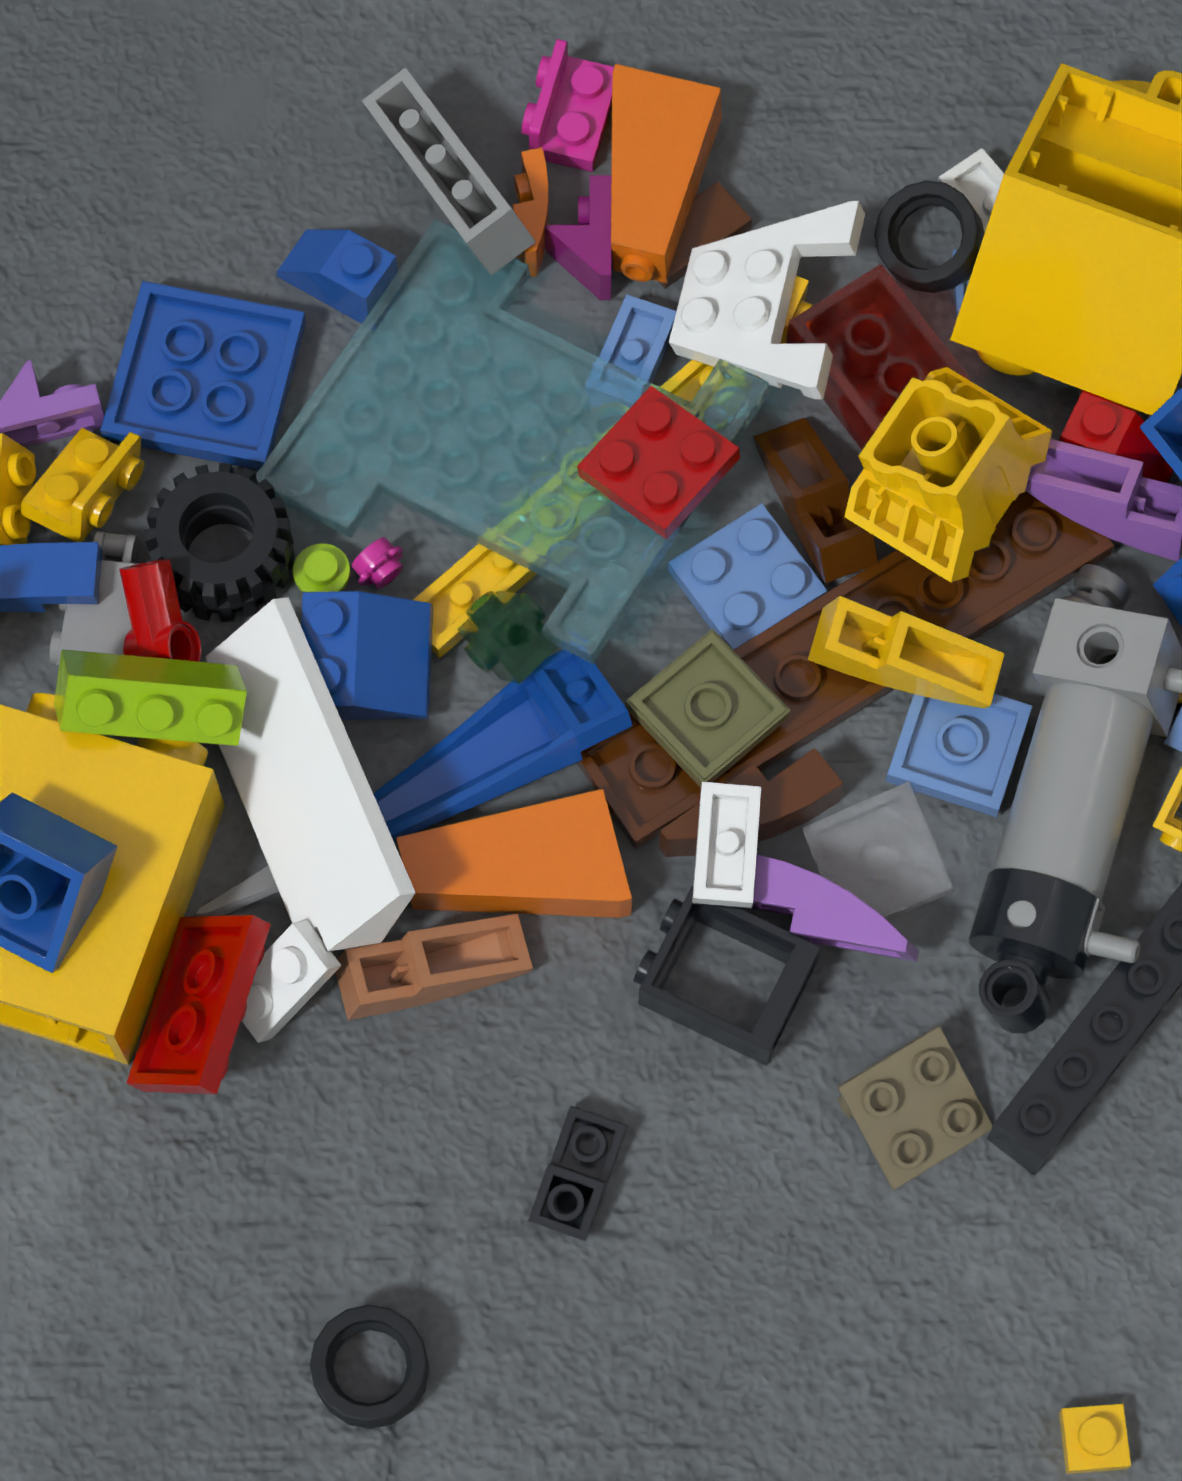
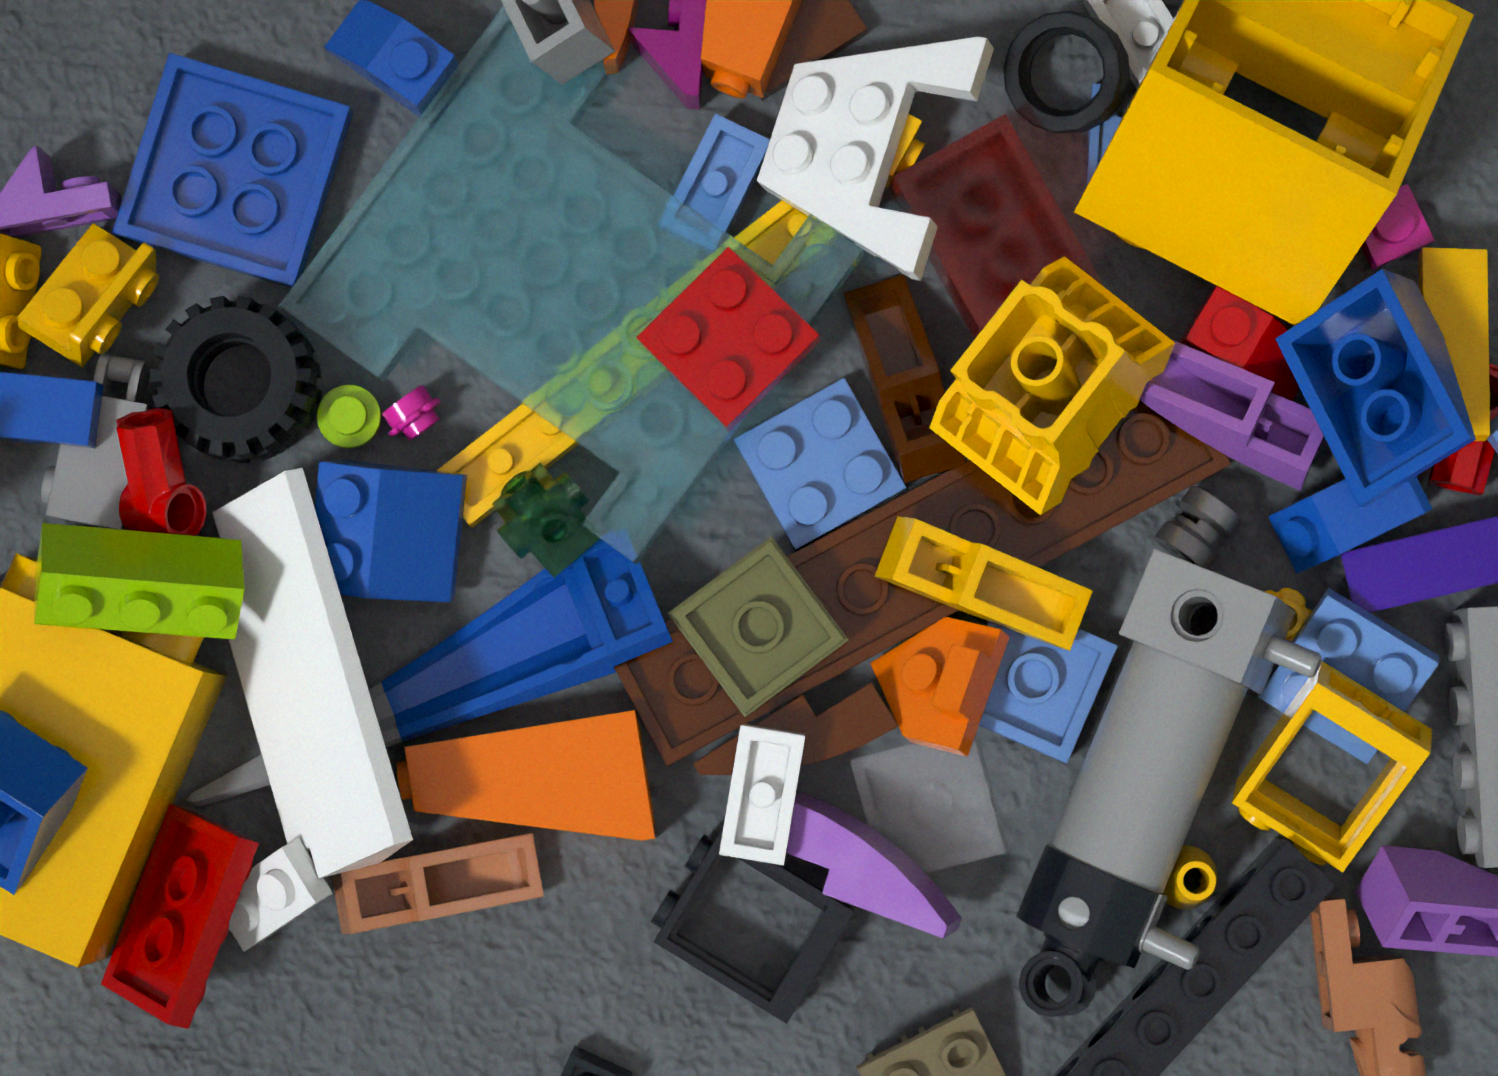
camera: 10 degrees right, 15 degrees up
(879, 745) = (942, 682): none -> orange plate
(1121, 914) = (1177, 894): none -> yellow cone

